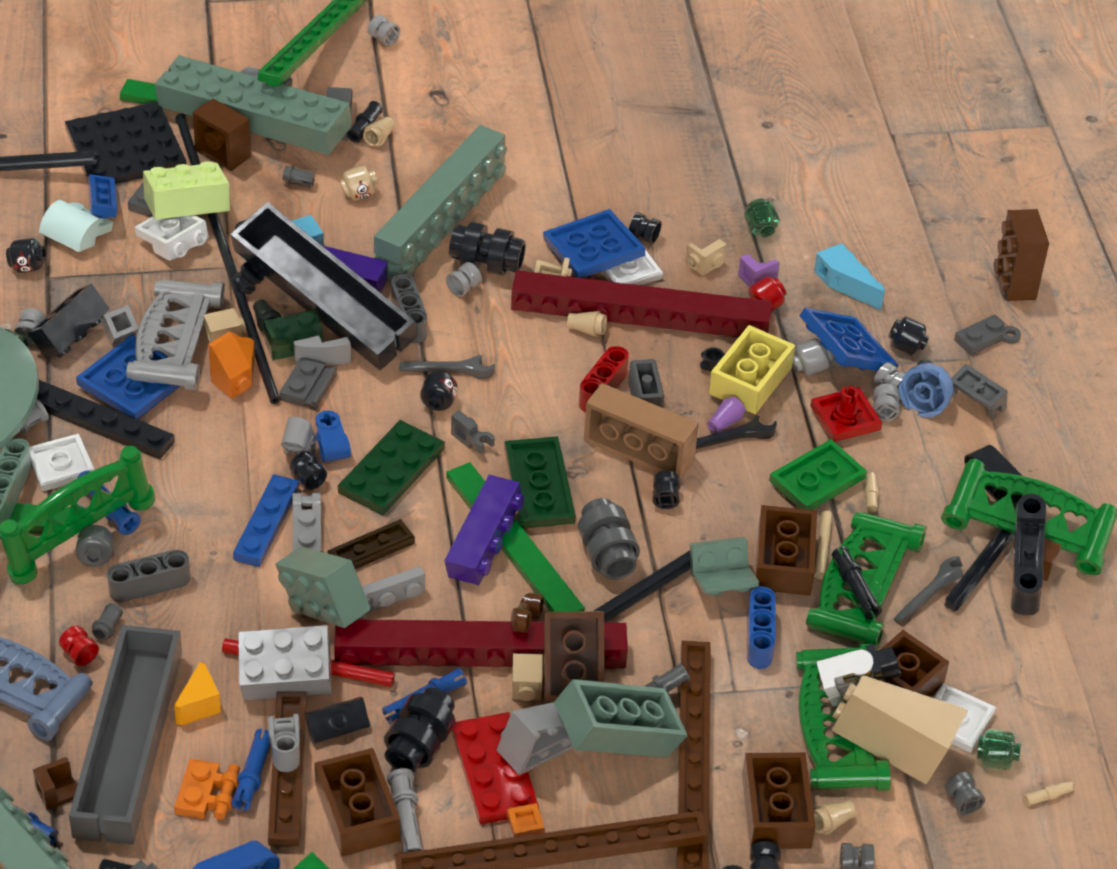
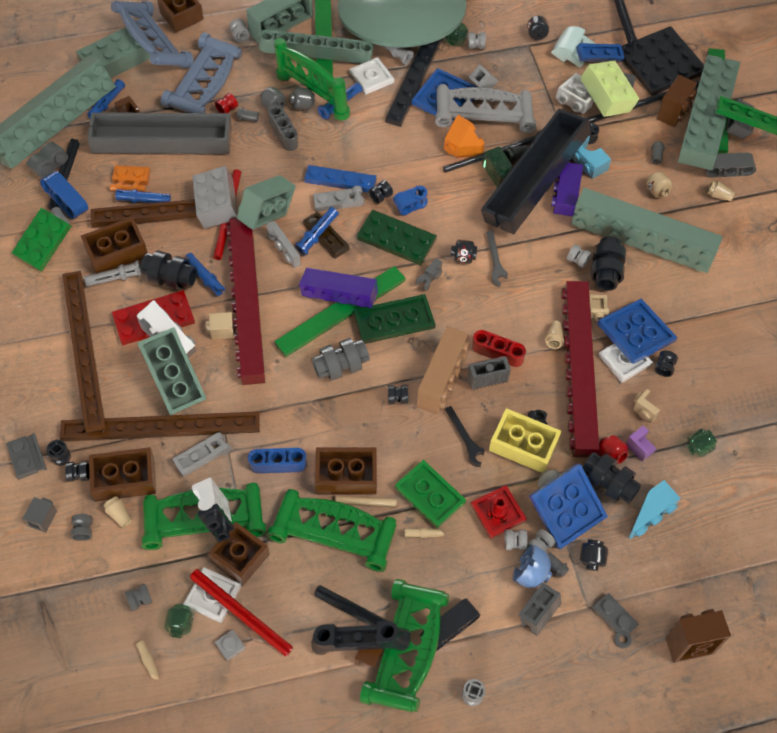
camera: 85 degrees right, 15 degrees up
(69, 322) = (482, 54): black brick -> none
(84, 584) = (272, 96): none -> dark grey head
(198, 698) = (194, 163): light orange slope -> none
(221, 322) = (497, 132): tan brick -> none
(284, 739) = (153, 203): light grey piece -> none
(298, 436) = (399, 178): light grey piece -> none
(307, 383) = (462, 184): dark grey plate -> none
(328, 353) = (488, 182): light grey slope -> none
(337, 720) = (180, 231): black plate -> none
(369, 115) = (729, 182): black pin -> none
(379, 555) = (311, 237): none -> blue pin
(407, 298) = (541, 227): dark grey beam -> none
(525, 820) = (108, 336): orange plate -> none
(530, 605) = (254, 309): reddish brown bar -> none
(571, 649) = (224, 341): reddish brown brick -> none
(646, 587) = (312, 392): black axle -> none
(670, 679) = (217, 400): dark grey pin -> none
(722, 566) = (322, 431): sand green bracket -> none
(728, 413) = (480, 429): medium lavender cone -> none
(744, 715) = (201, 454): none -> light grey plate
(814, 290) = (617, 482): none -> black piece
(852, 574) = (318, 517): black pin -> none
(898, 725) = (176, 544): tan slope -> none
(948, 572) = (343, 585): dark grey piece -> none
(996, 671) = (241, 612): none -> red axle
(1027, 702) = (230, 645): none -> light grey plate
(1084, 466) = (471, 696): none -> light grey wheel

